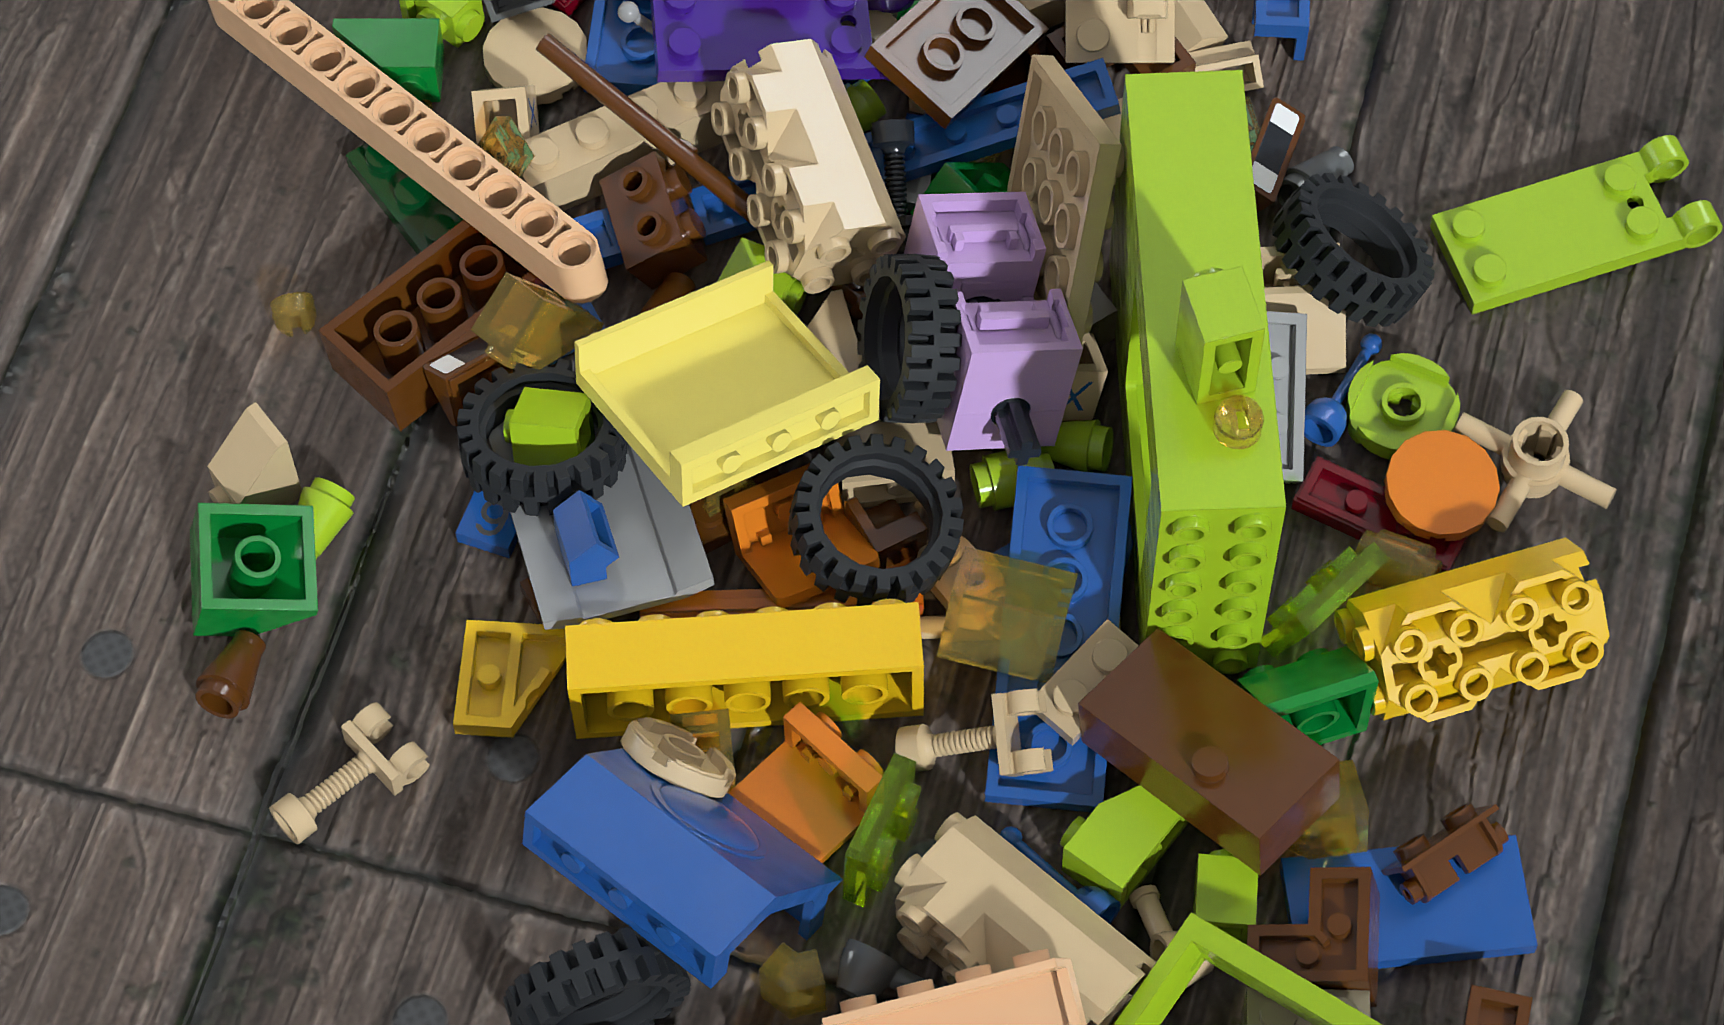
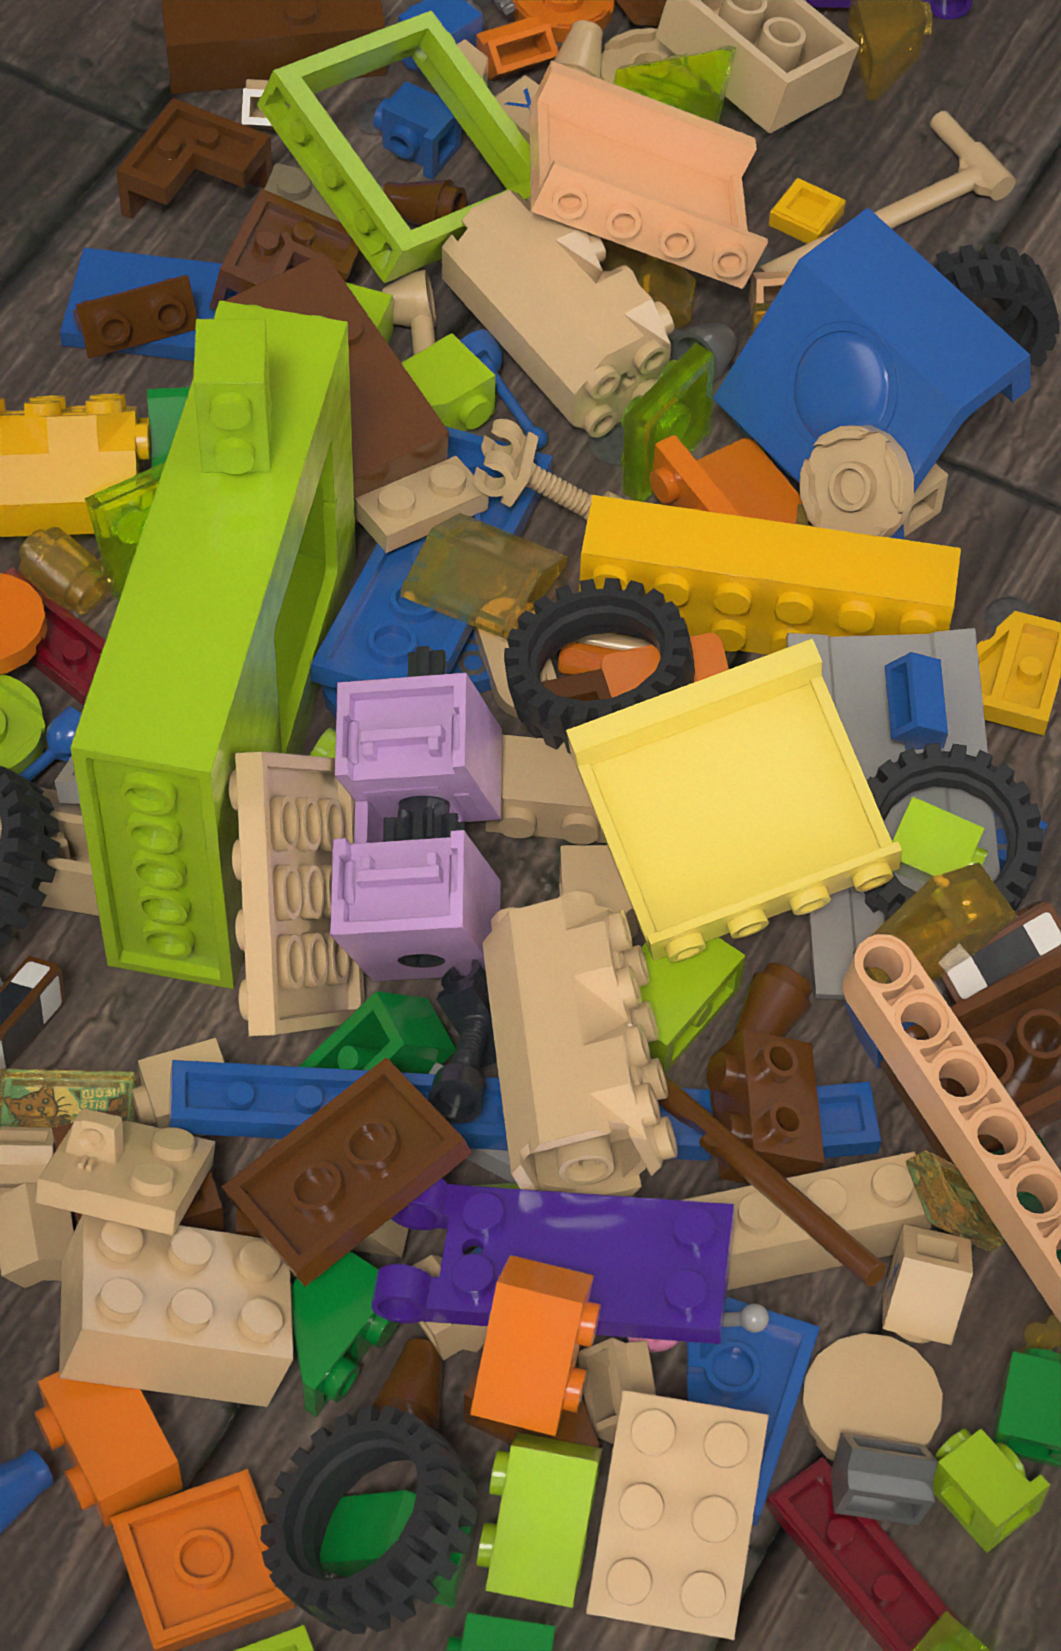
camera: 170 degrees left, 5 degrees down
(910, 336) = (516, 795): black tyre -> none

